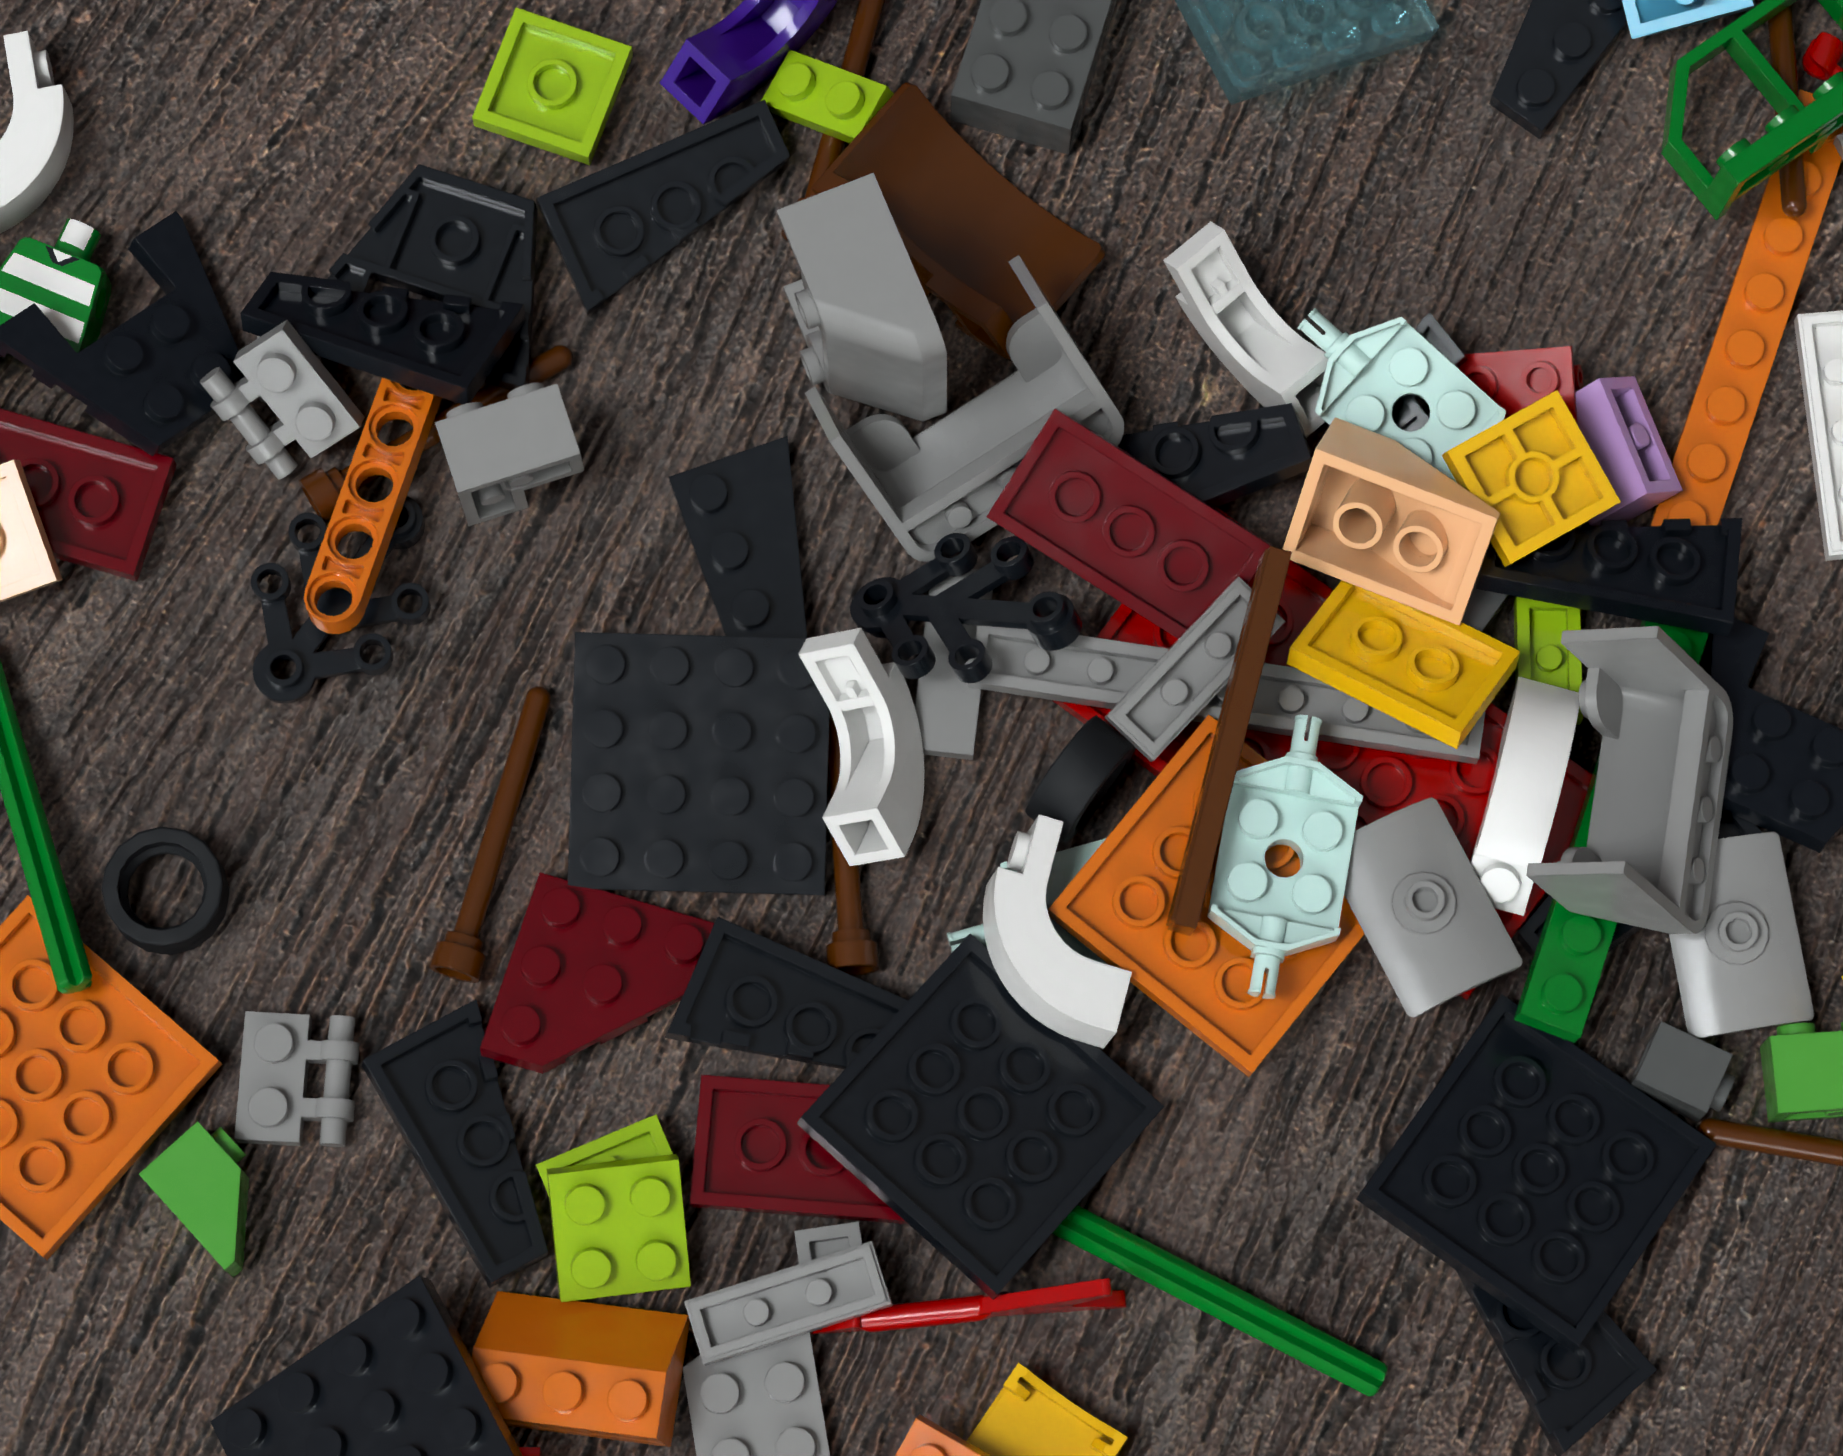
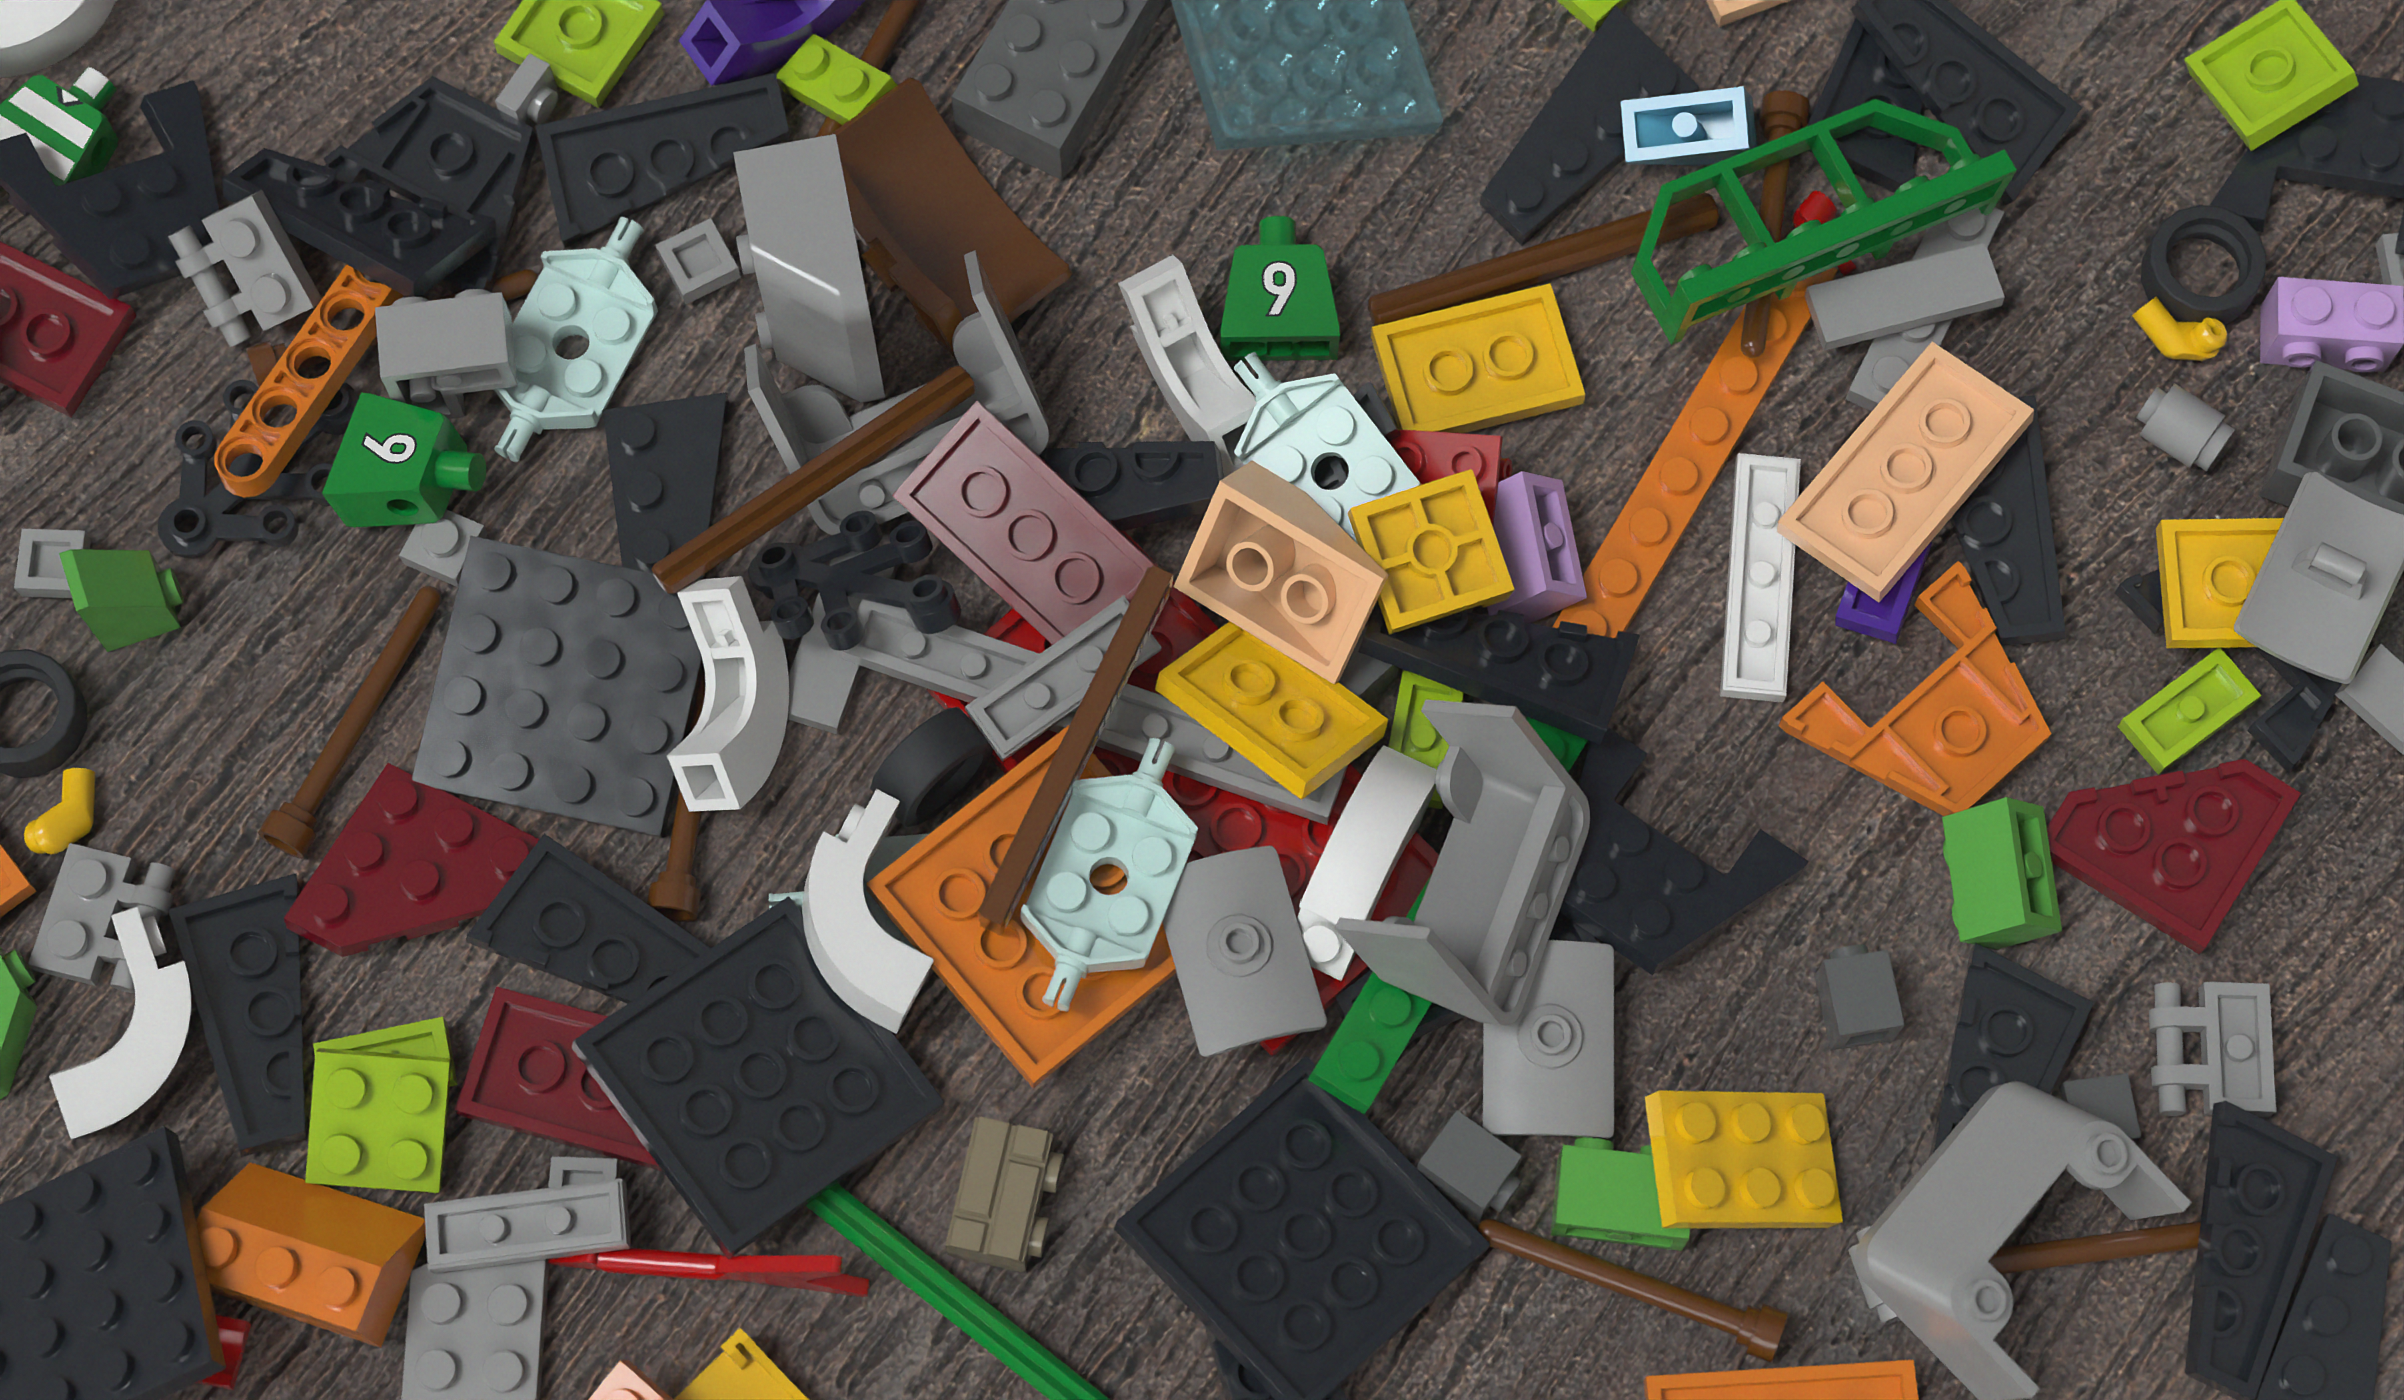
camera: 10 degrees right, 5 degrees down
(158, 734) = (39, 563): none -> light grey plate
(238, 986) = (68, 819): none -> yellow arm
(243, 753) = (122, 594): none -> bright green slope
(377, 1198) = (140, 1062): none -> white arch
(485, 572) = (399, 465): none -> green torso
(522, 164) = (530, 92): none -> light grey plate
(540, 642) = (441, 546): none -> light grey plate
(635, 364) = (586, 296): none -> light aqua plate
(728, 306) = (698, 261): none -> light grey plate
(905, 514) = (813, 479): none -> reddish brown axle
(1238, 1185) = (1002, 1195): none -> dark tan brick
(1316, 240) = (1279, 299): none -> green torso
(1524, 270) = (1479, 363): none -> yellow plate
(1556, 158) = (1540, 261): none -> reddish brown axle

